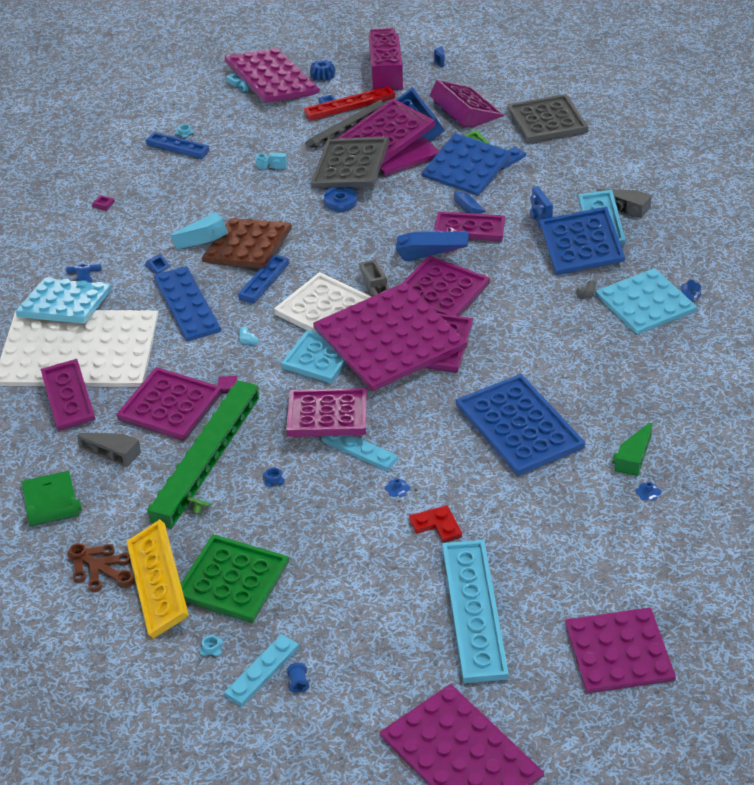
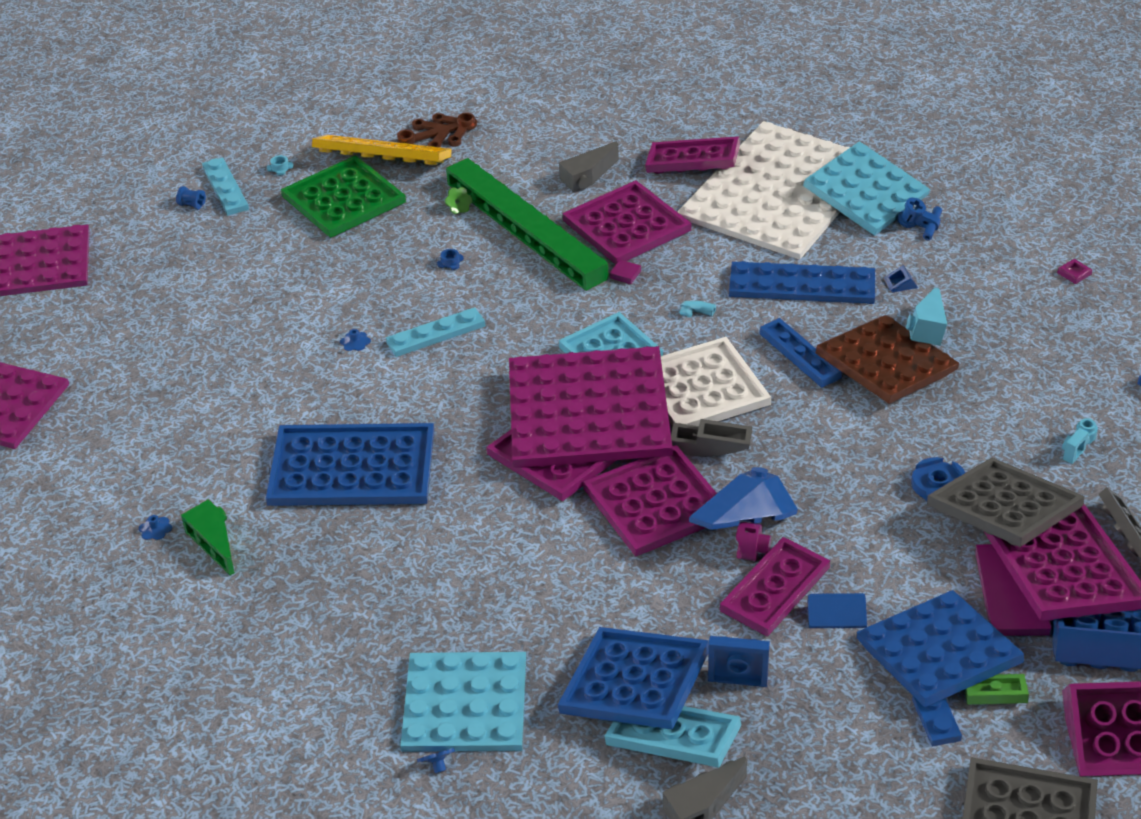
camera: 120 degrees right, 0 degrees up
(50, 498) = (551, 123): green door -> none
(327, 412) = (501, 314): magenta plate -> none
(439, 519) = (280, 350): red plate -> none
(474, 612) = (147, 326): medium azure plate -> none
(589, 291) = (534, 646): dark grey arm -> none

